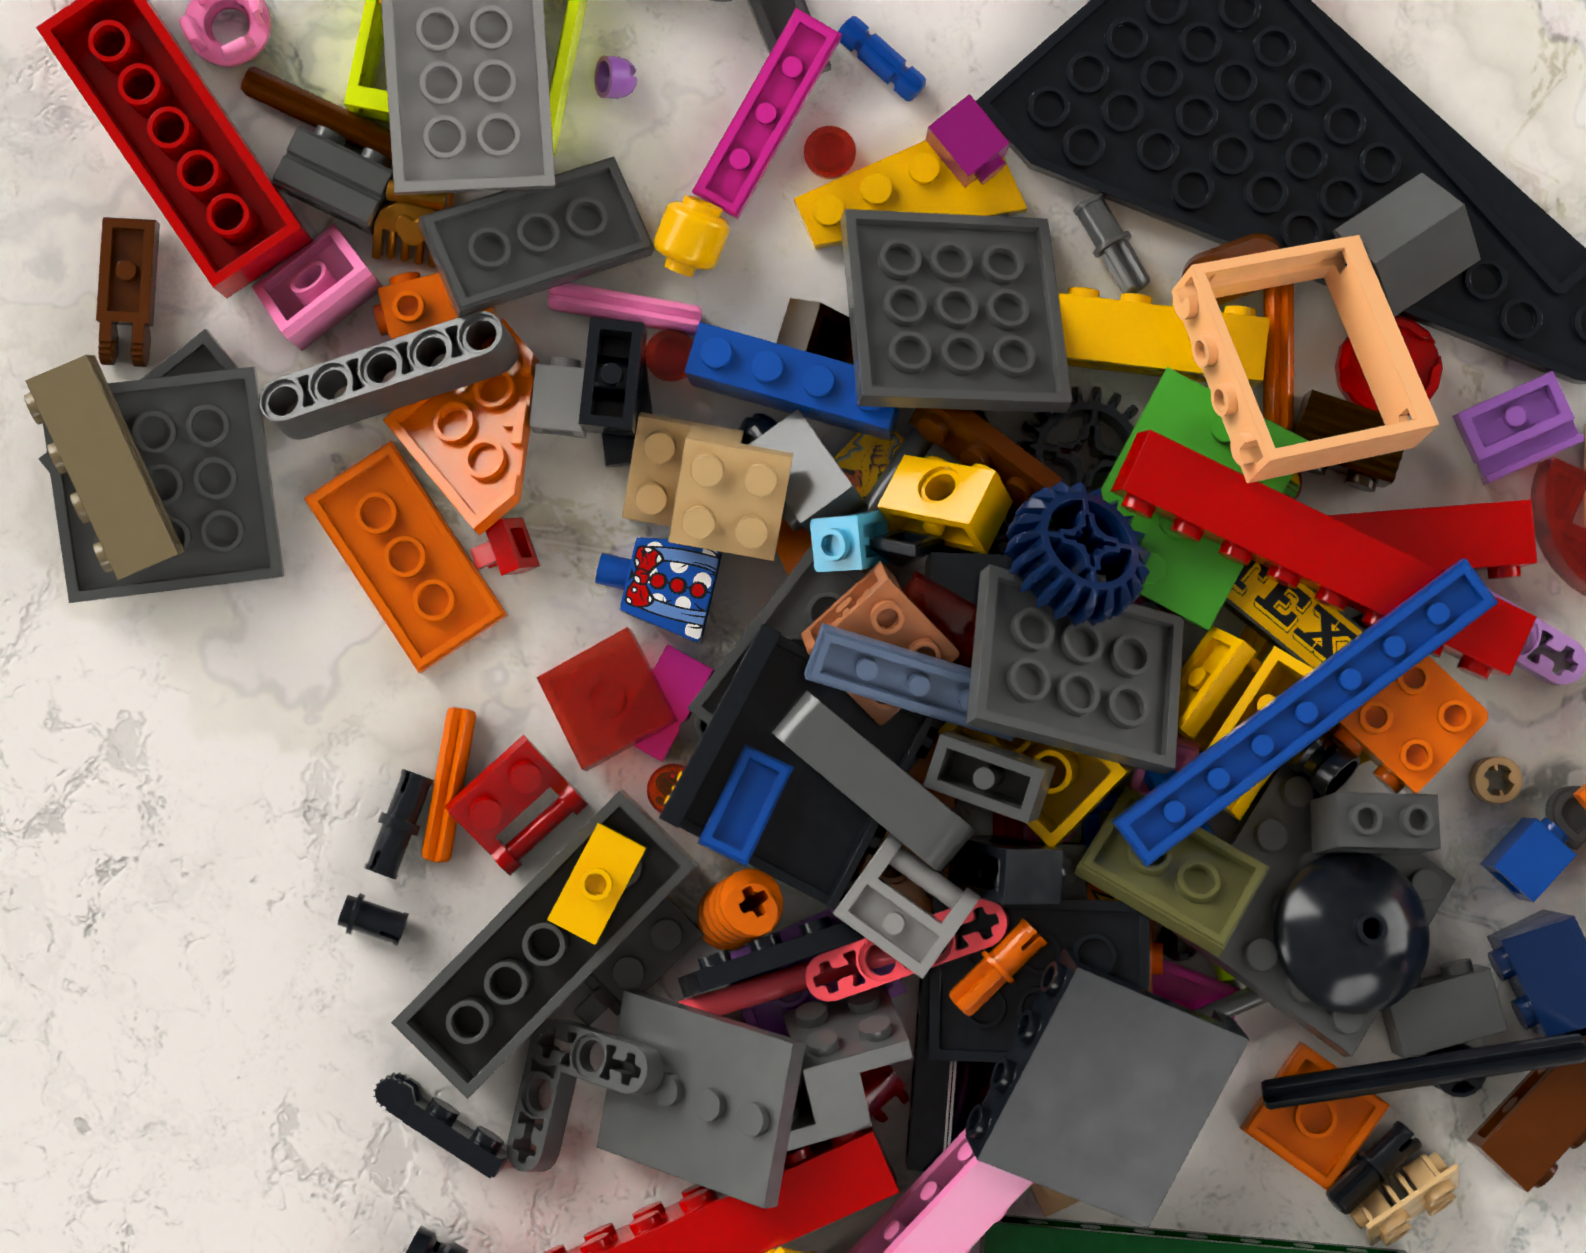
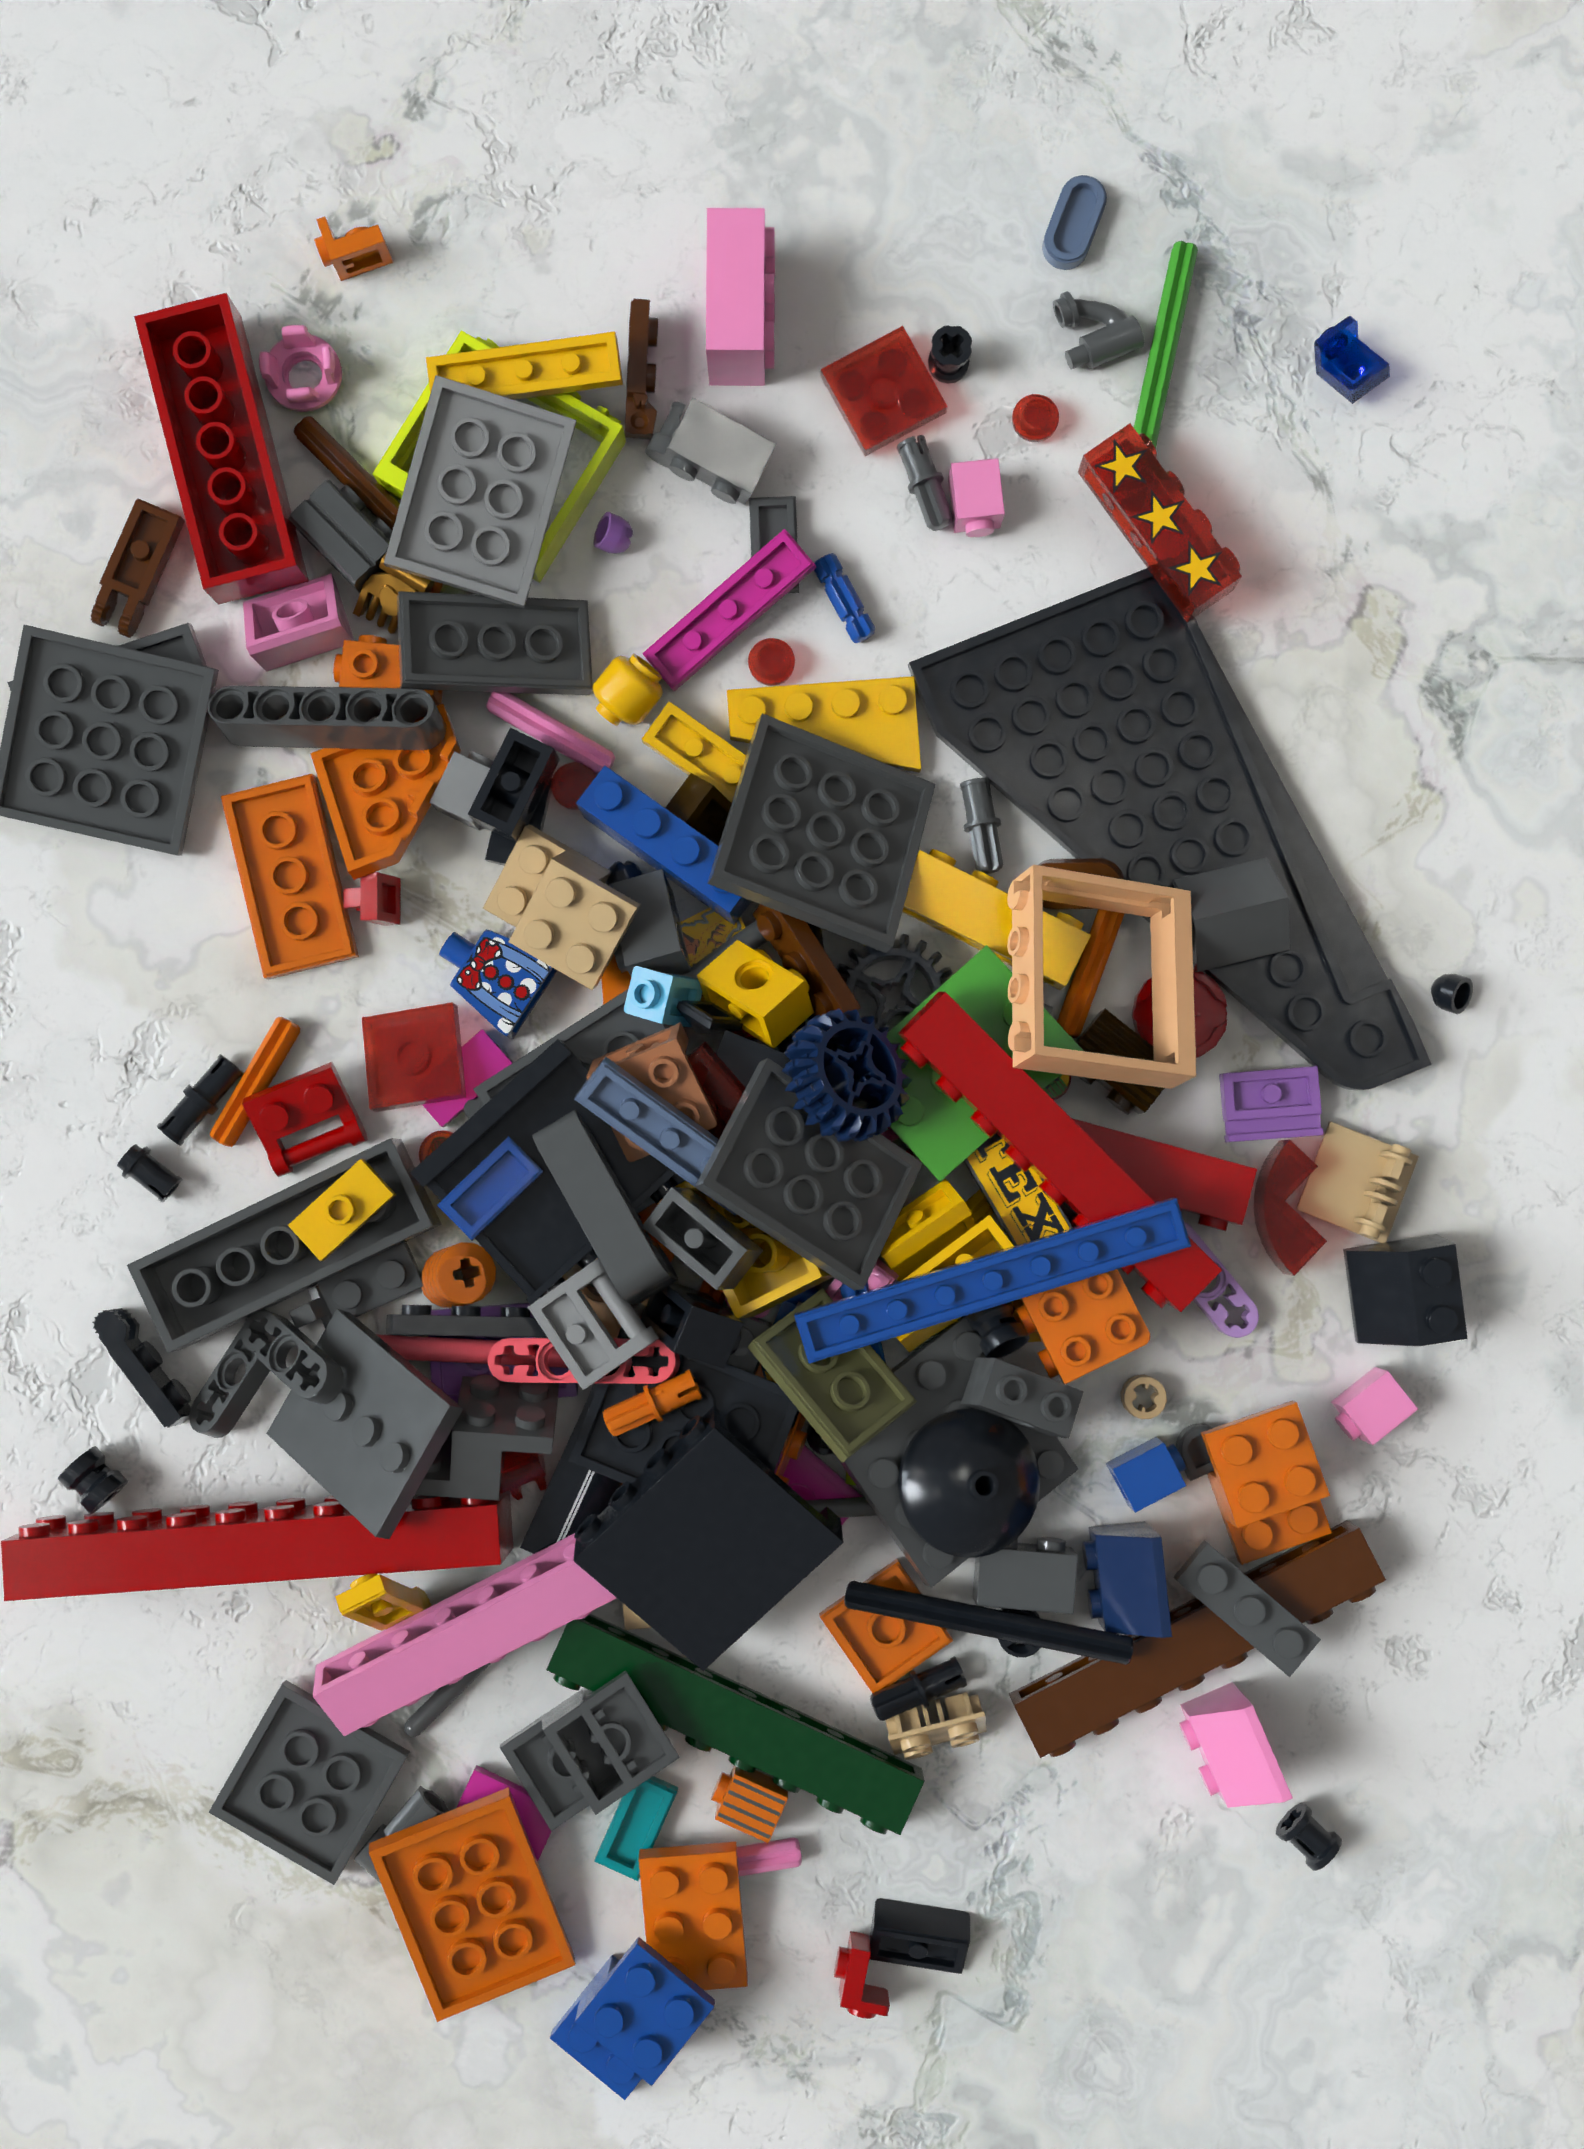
camera: 15 degrees right, 0 degrees up
(103, 466) = (54, 707): dark tan brick -> none
(787, 272) = (695, 749): none -> yellow plate
(968, 142) = (888, 694): magenta brick -> none

